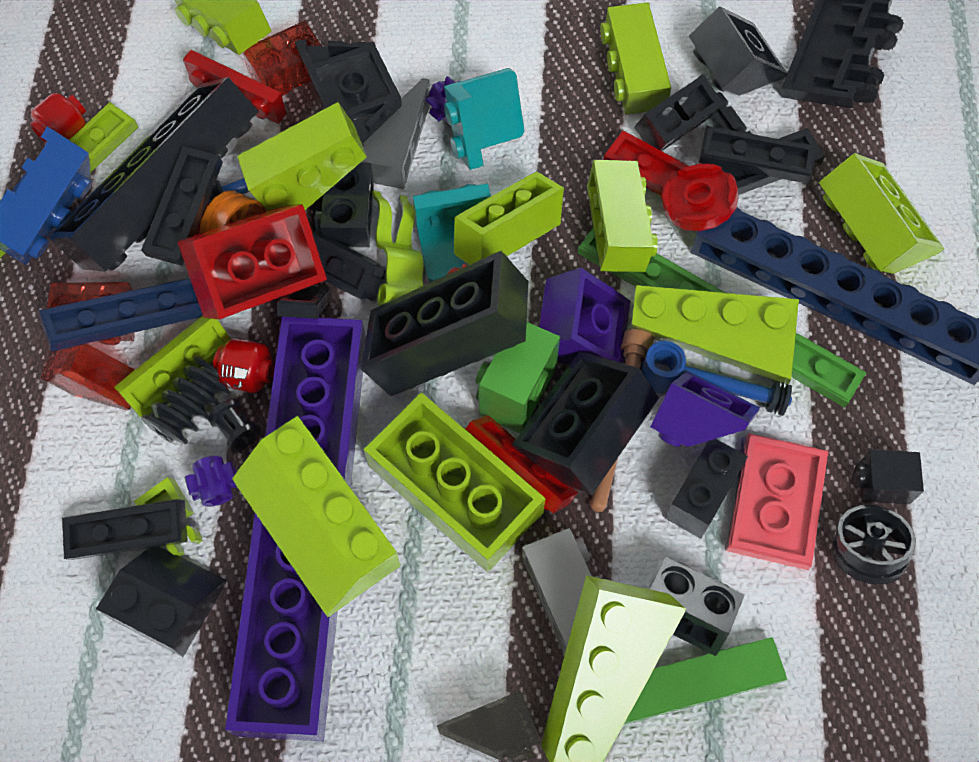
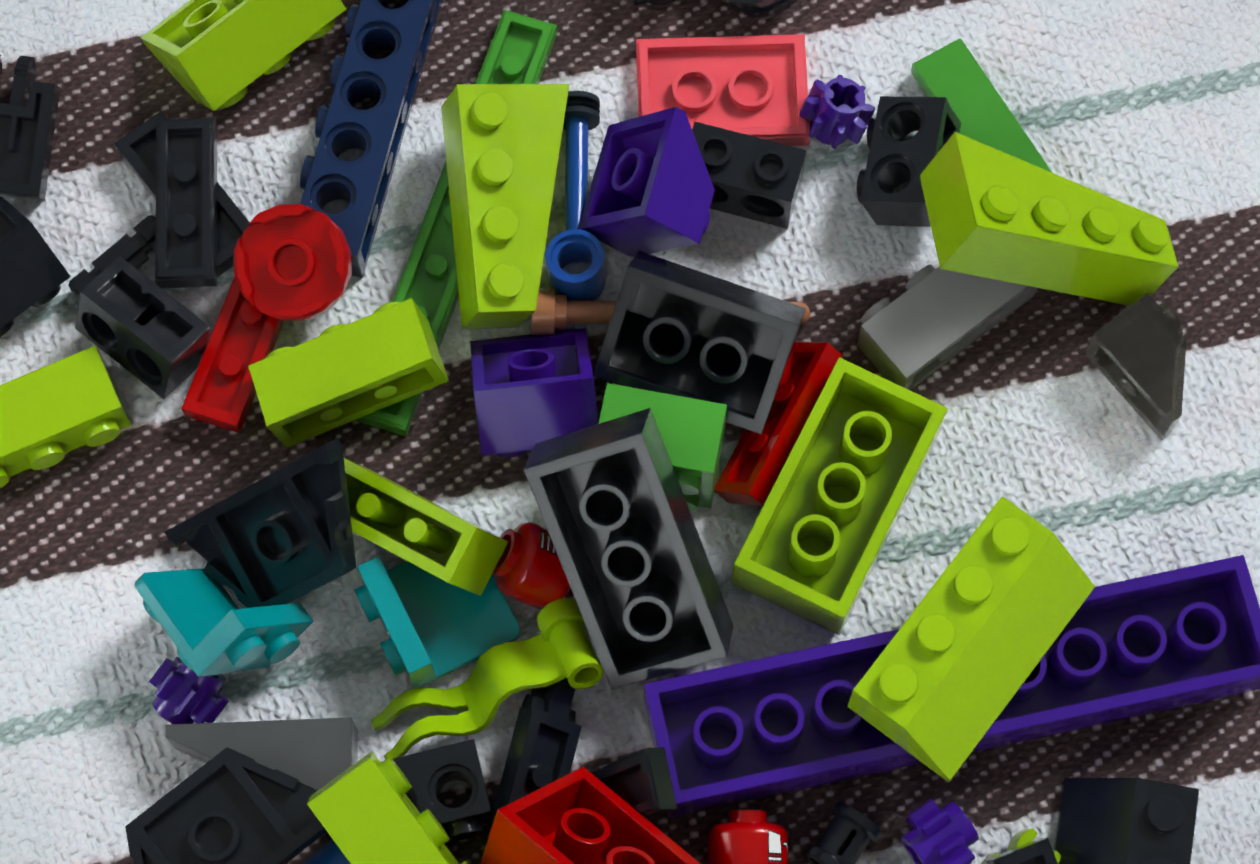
camera: 105 degrees left, 5 degrees up
(523, 154) = (279, 532): none -> black wing
(752, 573) = (837, 111): none -> dark purple gear

